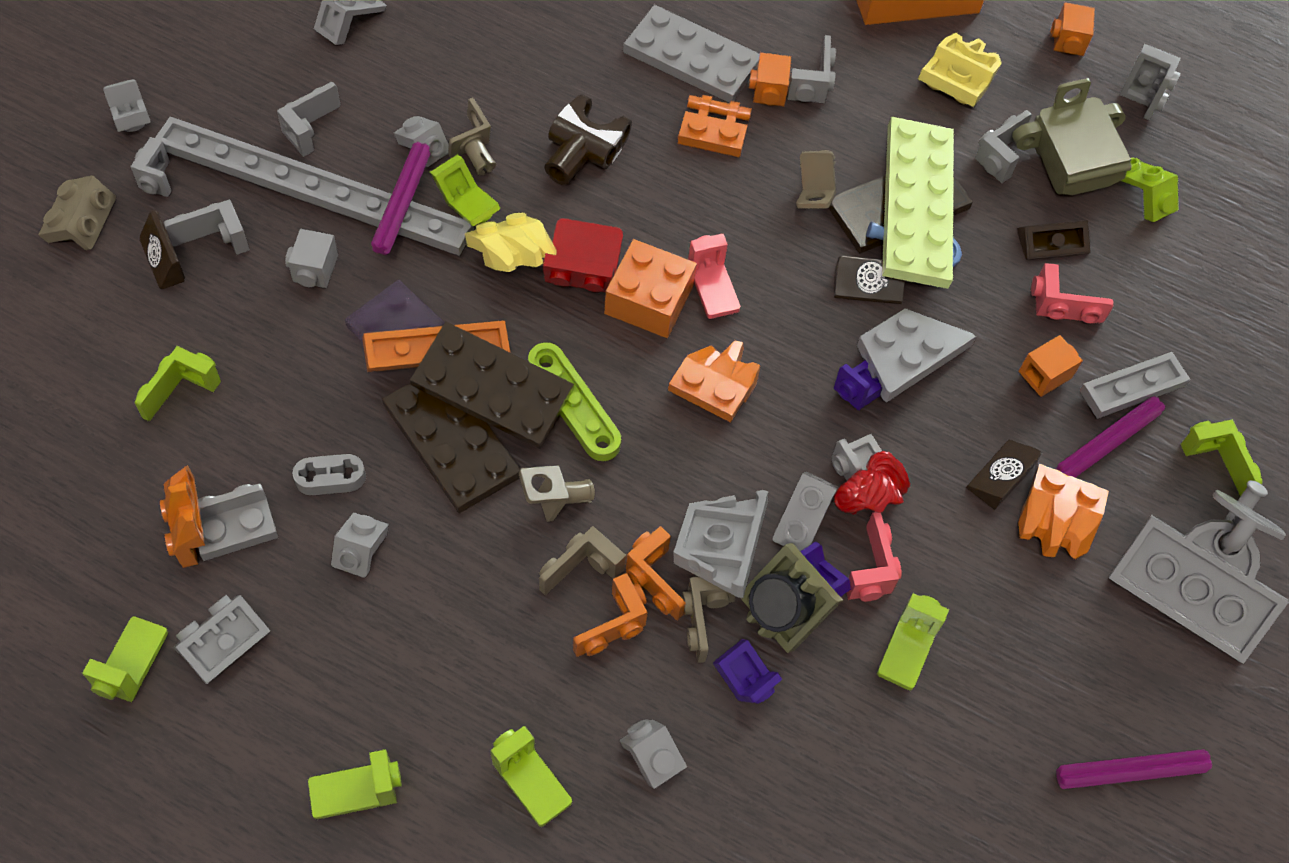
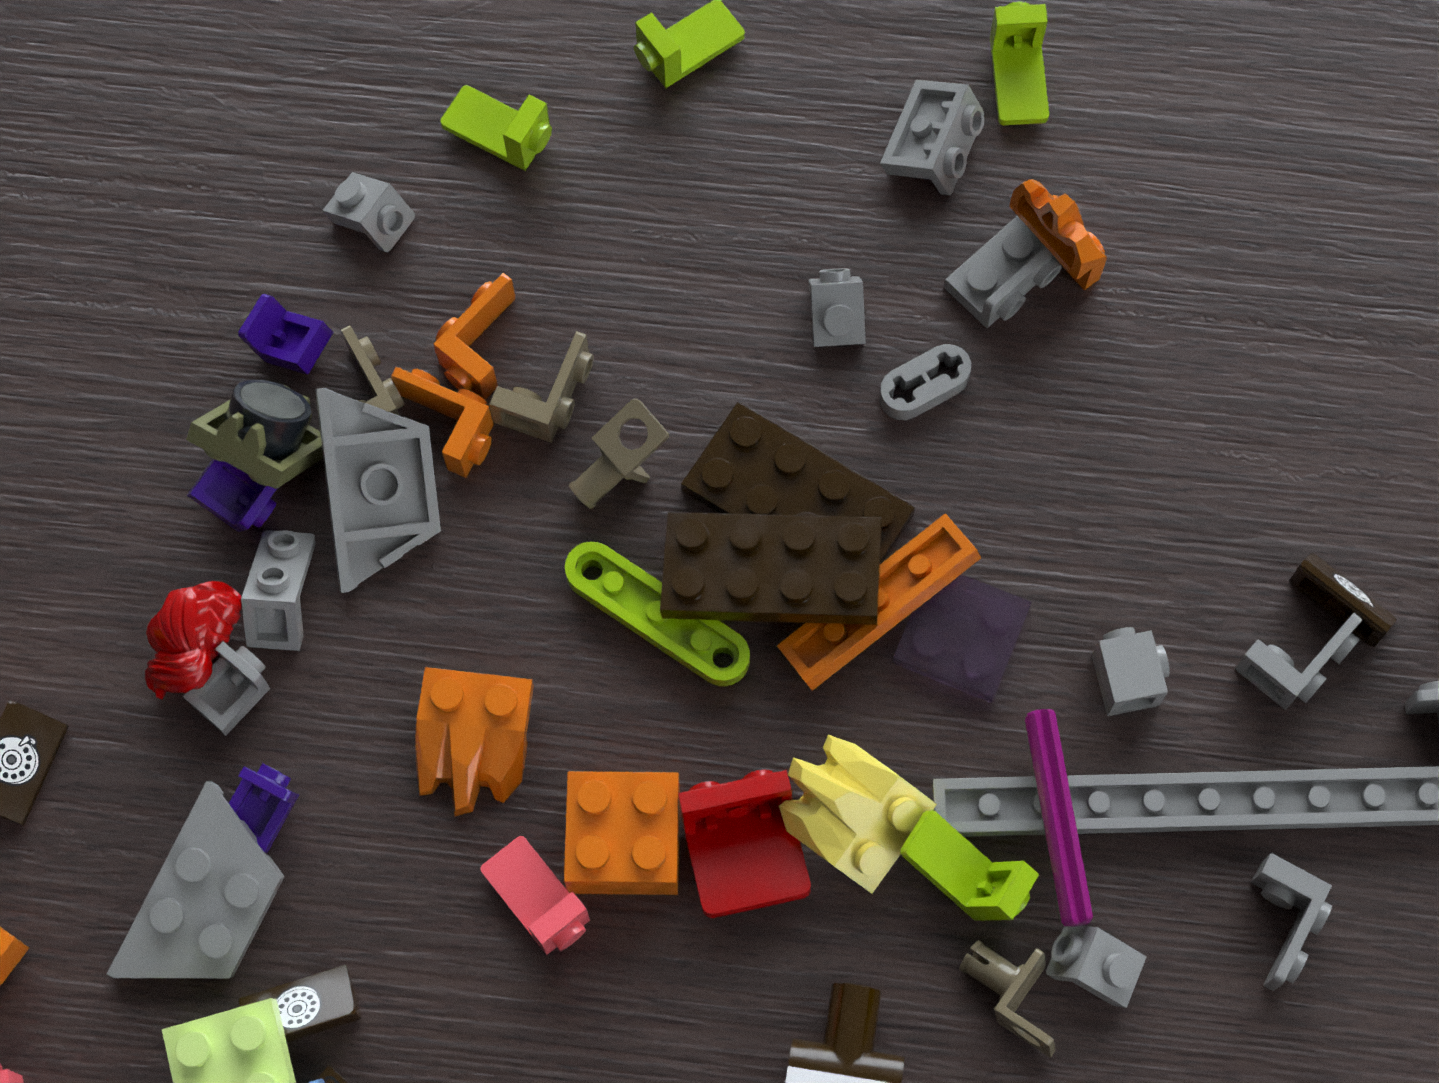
camera: 165 degrees right, 10 degrees up
(179, 364) = (1186, 440): lime bracket -> none
(875, 582) = (156, 519): coral bracket -> none
(912, 641) = (90, 459): lime bracket -> none

